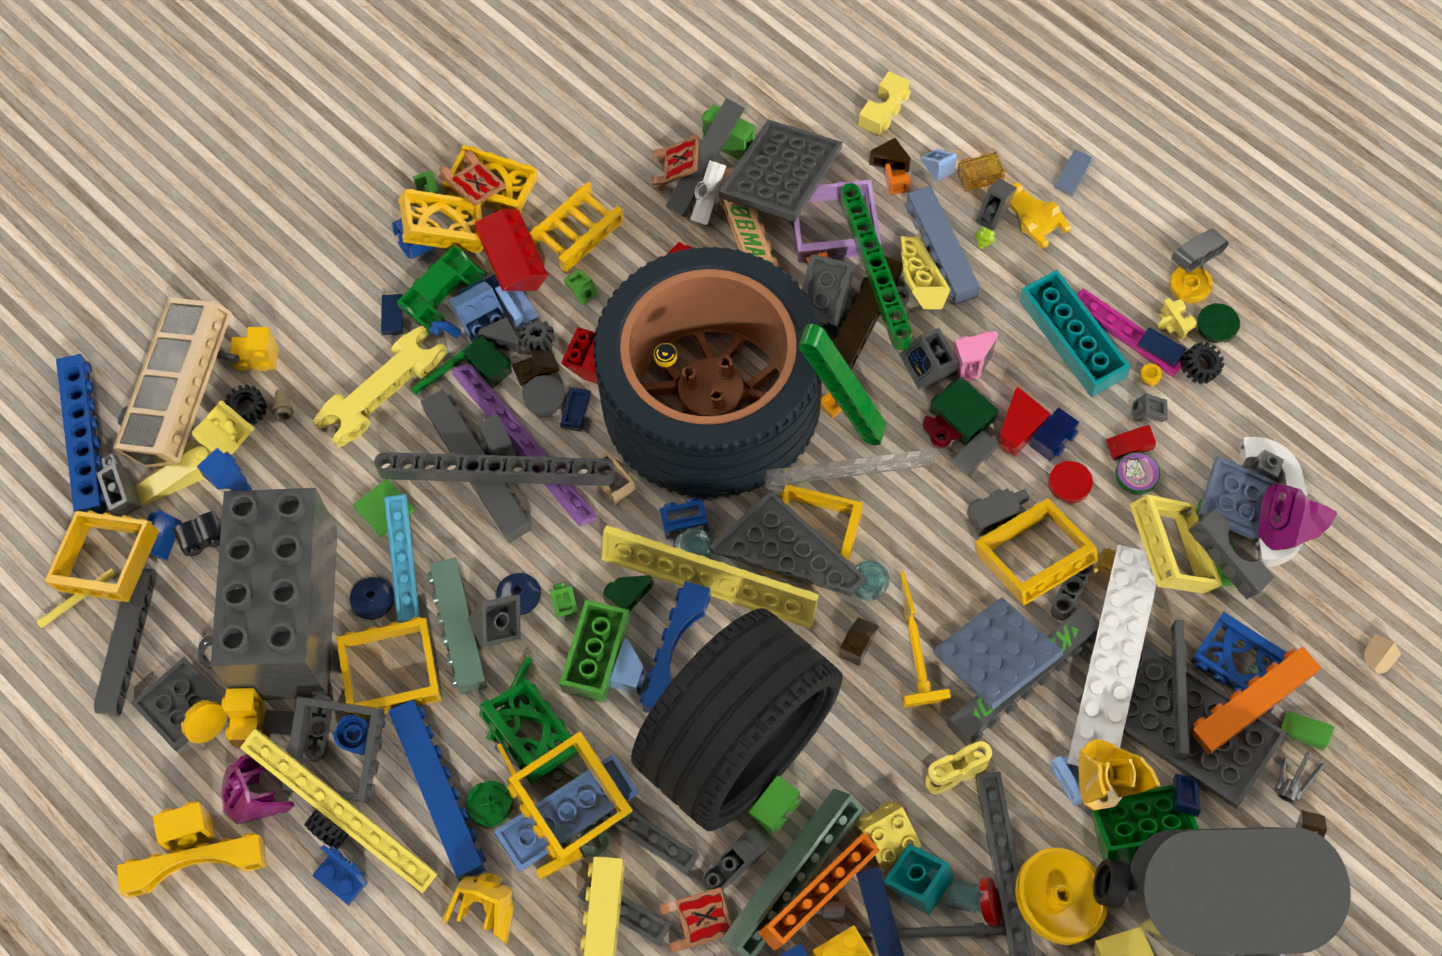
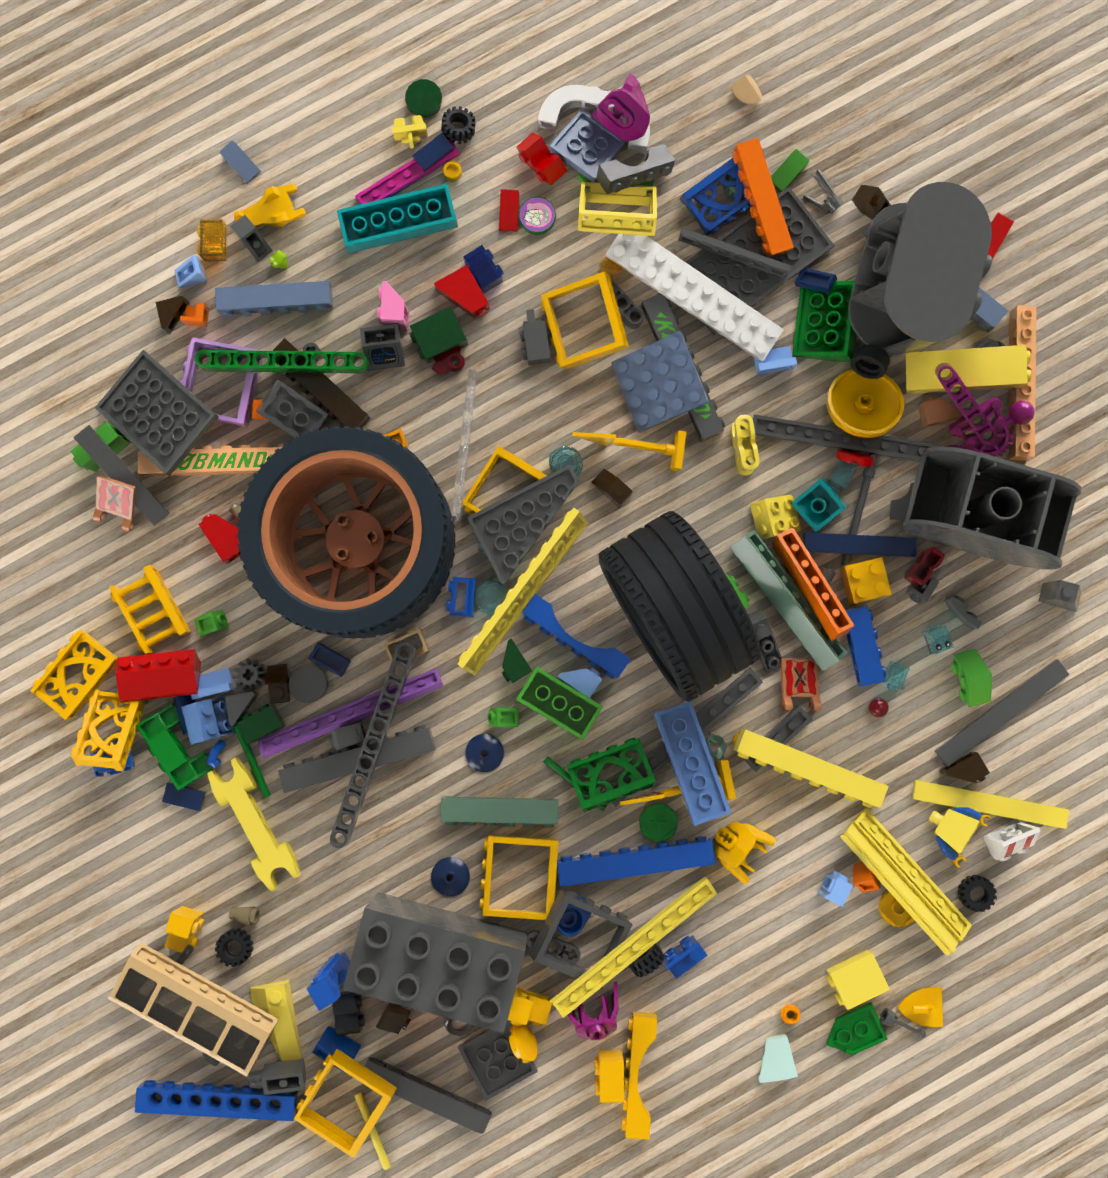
camera: 75 degrees left, 20 degrees up
(202, 578) = (394, 1018): none -> dark brown slope
(222, 429) = (258, 975): light yellow bracket -> none
(278, 722) = (537, 977): dark grey sticker -> none
(372, 506) = (371, 848): bright green tile -> none
(402, 558) = (424, 843): medium azure tile -> none
(427, 181) = (57, 731): bright green bracket -> none
(475, 182) = (74, 690): nougat flag -> none
(496, 620) = (511, 777): dark grey slope -> none
(580, 356) = (283, 636): red slope -> none
(600, 774) = (653, 770): yellow window -> none
(665, 355) = (341, 569): black tile -> none
(707, 192) = (157, 483): white piece -> none
(842, 384) = (405, 427): green beam -> none
(877, 116) = (124, 310): light yellow arch -> none
(922, 274) = (298, 325): light yellow wedge -> none
(976, 451) = (479, 338): dark grey slope -> none
(1070, 481) = (527, 272): red tile -> none
(1110, 774) = (784, 330): yellow piece -> none
(1150, 407) = (484, 183): dark grey bracket -> none
(1191, 286) = (379, 106): yellow tile -> none
(1200, 250) = (353, 85): dark grey beam -> none
(1201, 456) = (542, 161): none -> red brick
(1267, 464) = (569, 109): dark grey bracket -> none

